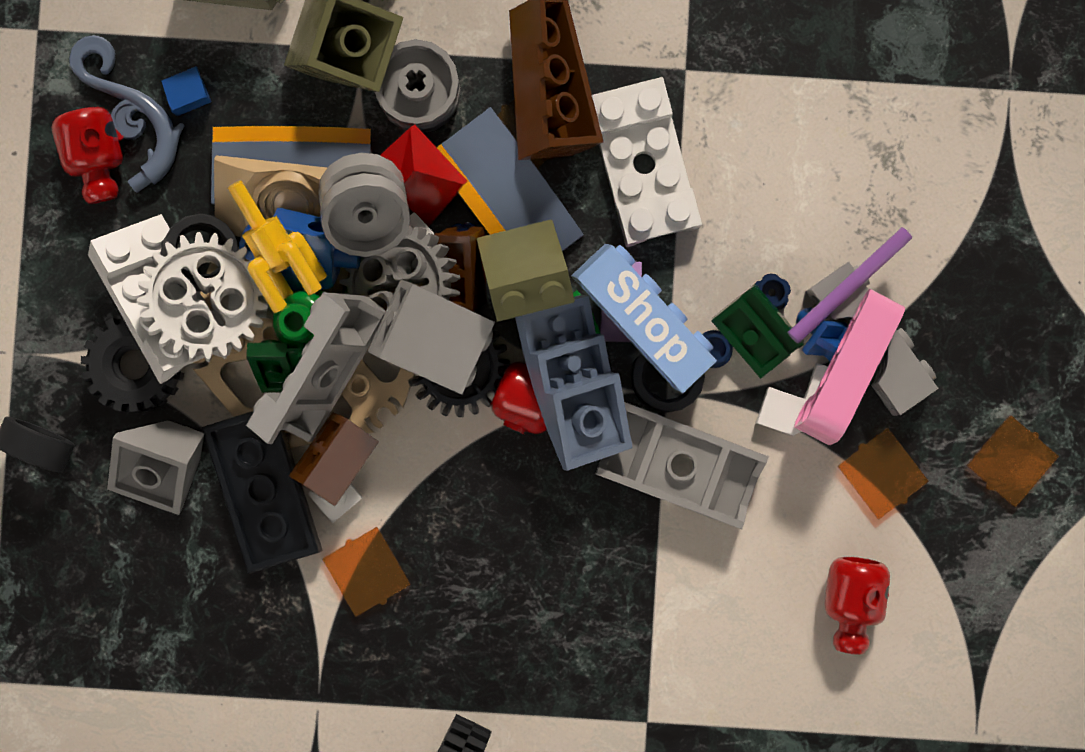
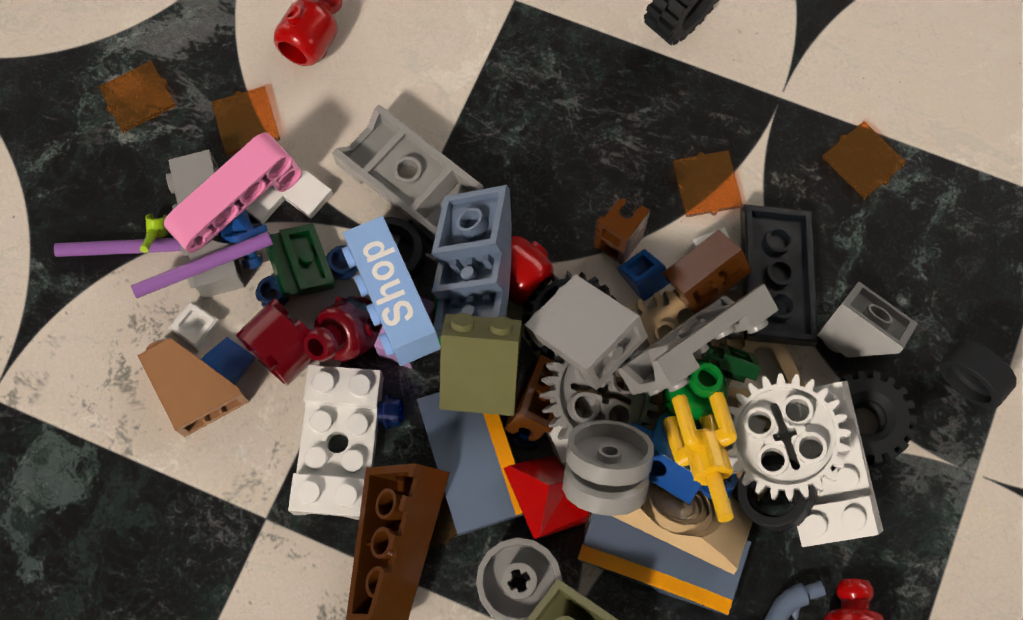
camera: 155 degrees left, 15 degrees down
(208, 656) = (864, 160): none -> clear orange piece
(401, 446) = (644, 274): none -> blue slope
(440, 466) = (619, 235): none -> reddish brown hinge
(603, 211) = (390, 412): none -> clear blue plate
(681, 265) = (342, 331): none -> dark red piece
(739, 233) = (277, 342): none -> dark red brick
(787, 207) = (229, 359): none -> blue slope
(815, 165) = (188, 387): none -> medium nougat slope
(837, 231) = (194, 325): none -> white tile
(922, 314) = (154, 230): none -> lime hand
(959, 282) = (114, 247): none -> medium lavender bar

